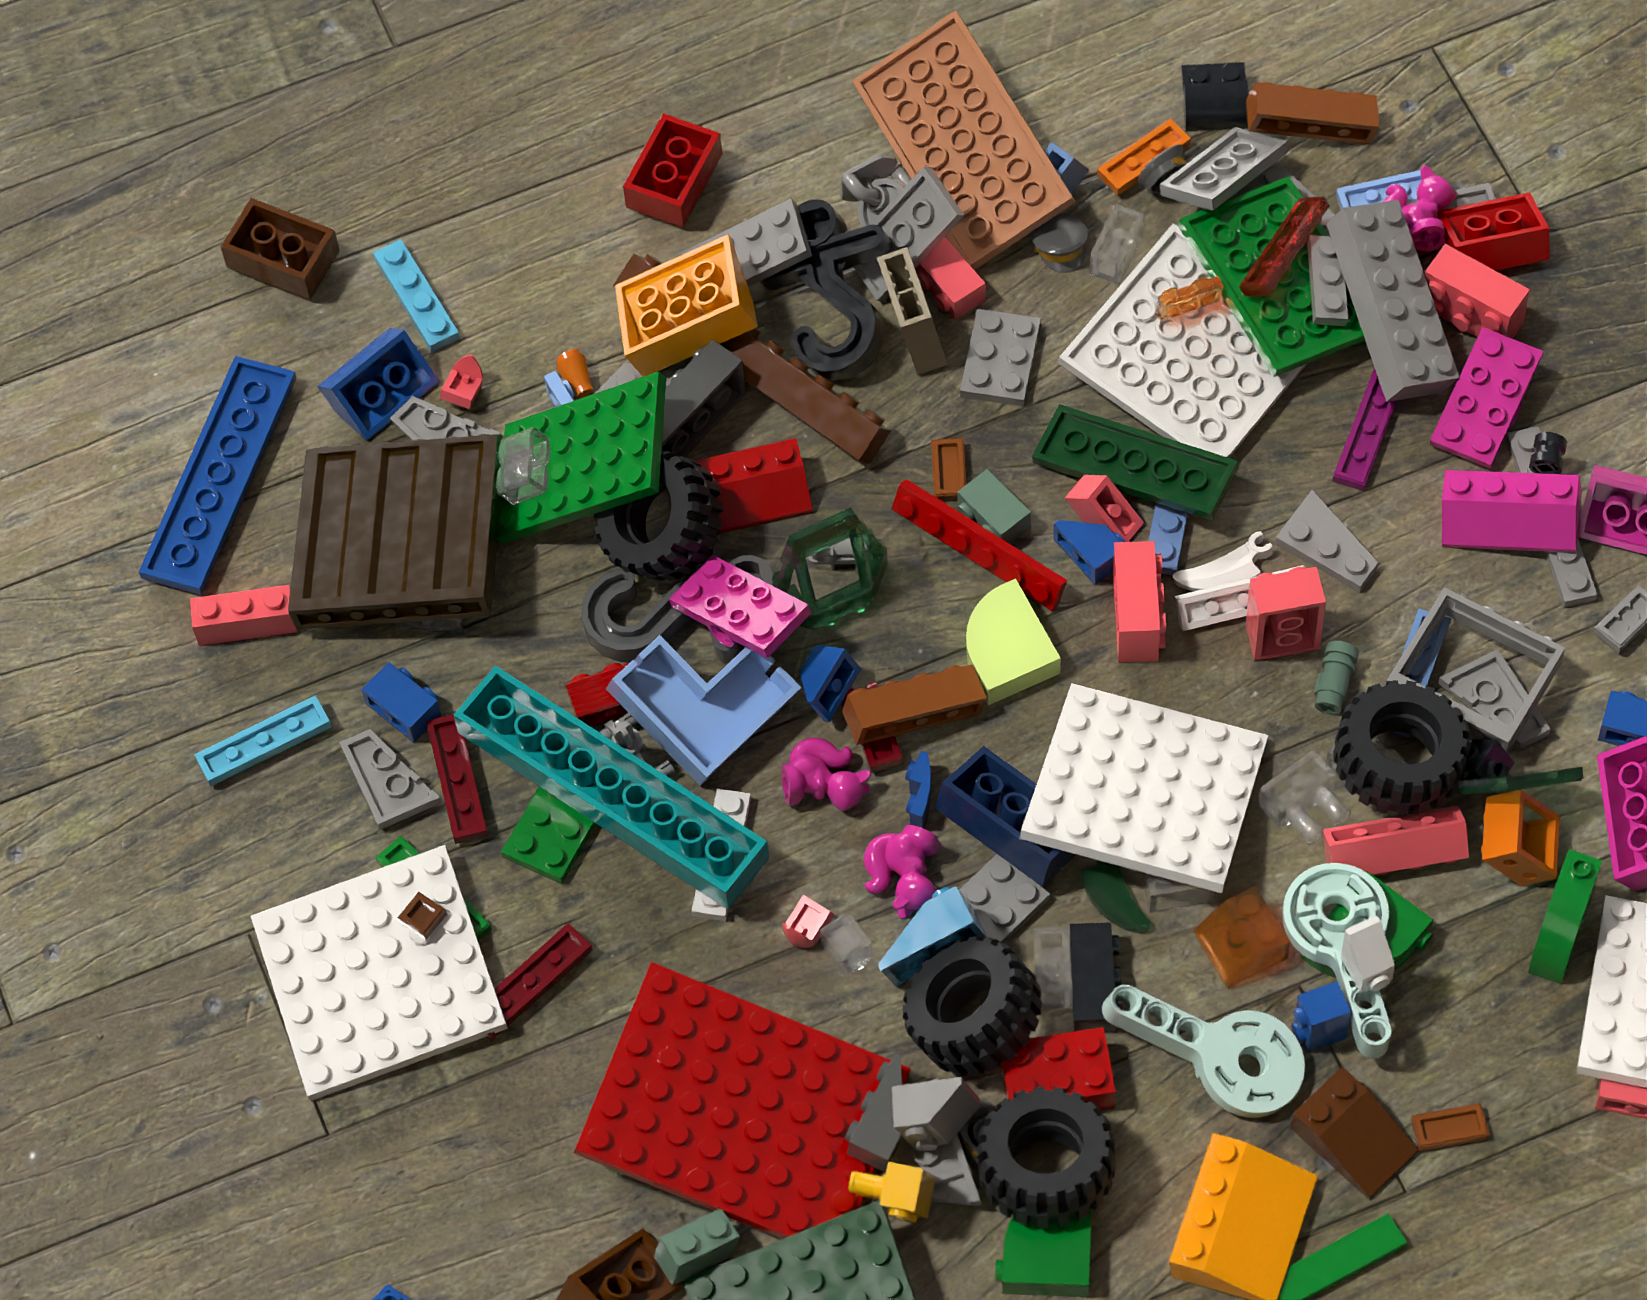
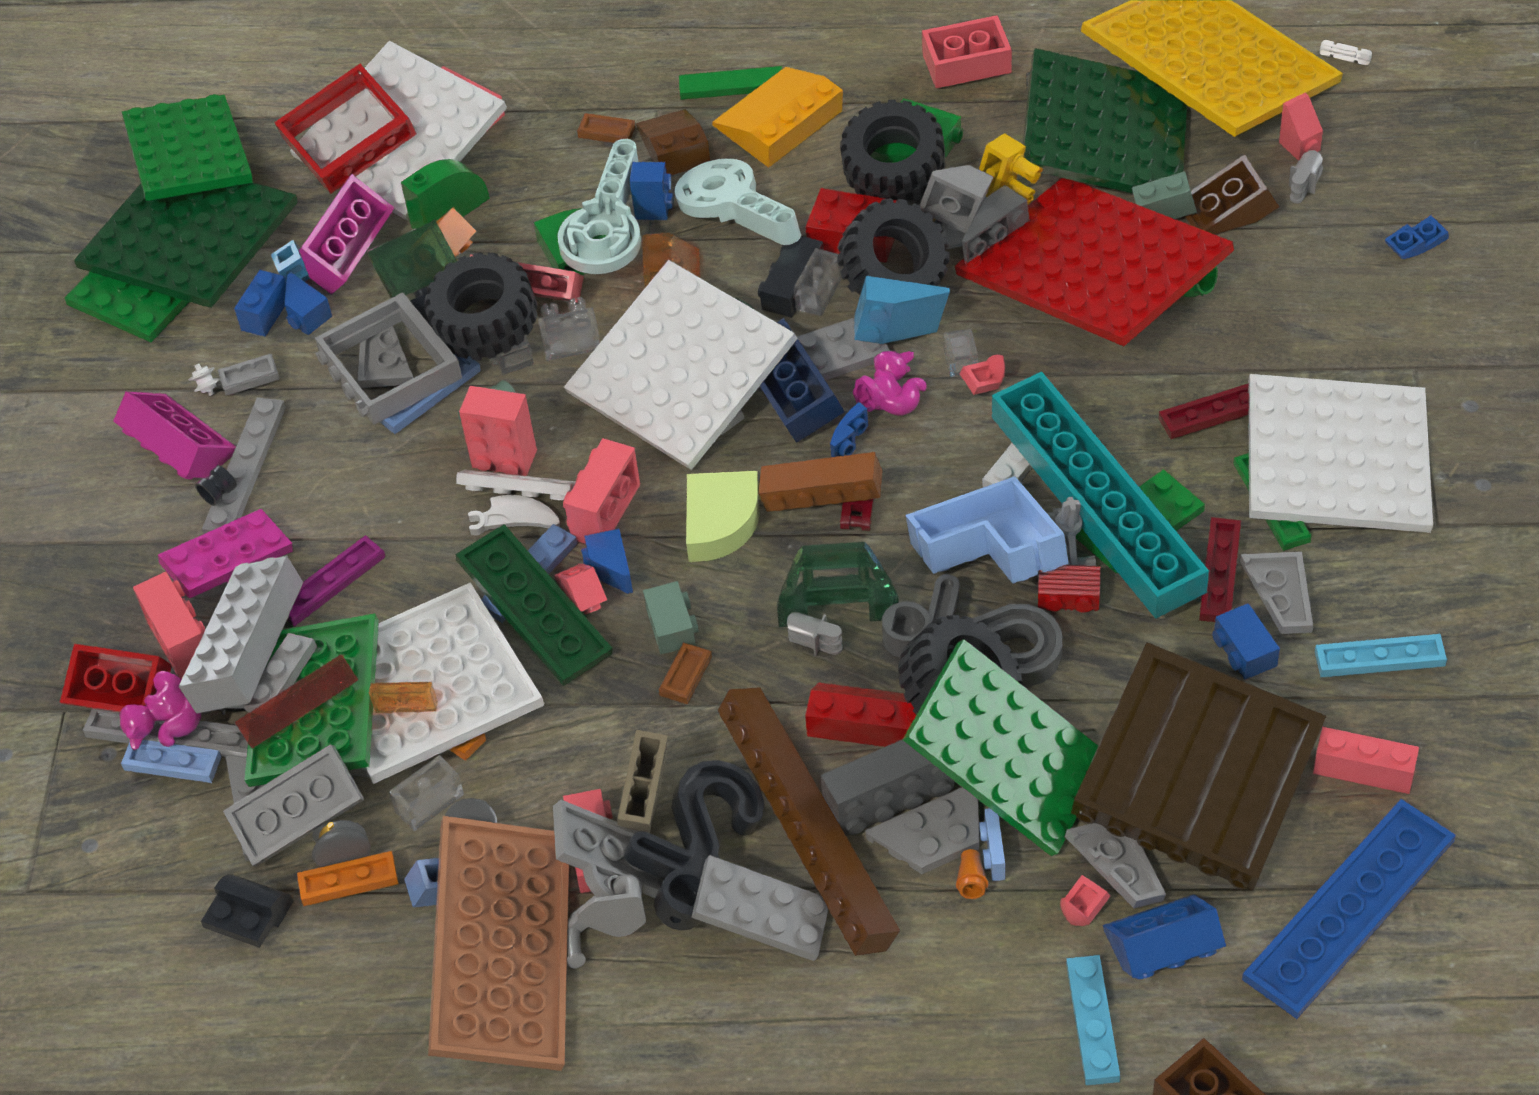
camera: 155 degrees left, 10 degrees down
(422, 915) = (1289, 457): reddish brown tile -> none
(523, 465) = (1062, 762): clear brick -> none
(672, 170) = (786, 1029): red brick -> none
(684, 306) = (847, 853): light orange slope -> none
(739, 607) = (924, 571): dark pink plate -> none
(809, 774) = (929, 469): dark pink animal -> none
(827, 678) = (881, 528): blue slope -> none
(978, 544) = (703, 600): red plate -> none
(1000, 357) = (585, 750): light grey plate -> none
(1312, 113) = (180, 841): dark orange brick -> none
(1326, 543) = (425, 508): light grey wing -> none
(1368, 955) = (602, 171): white slope -> none
(1511, 511) = (272, 464): dark pink slope -> none

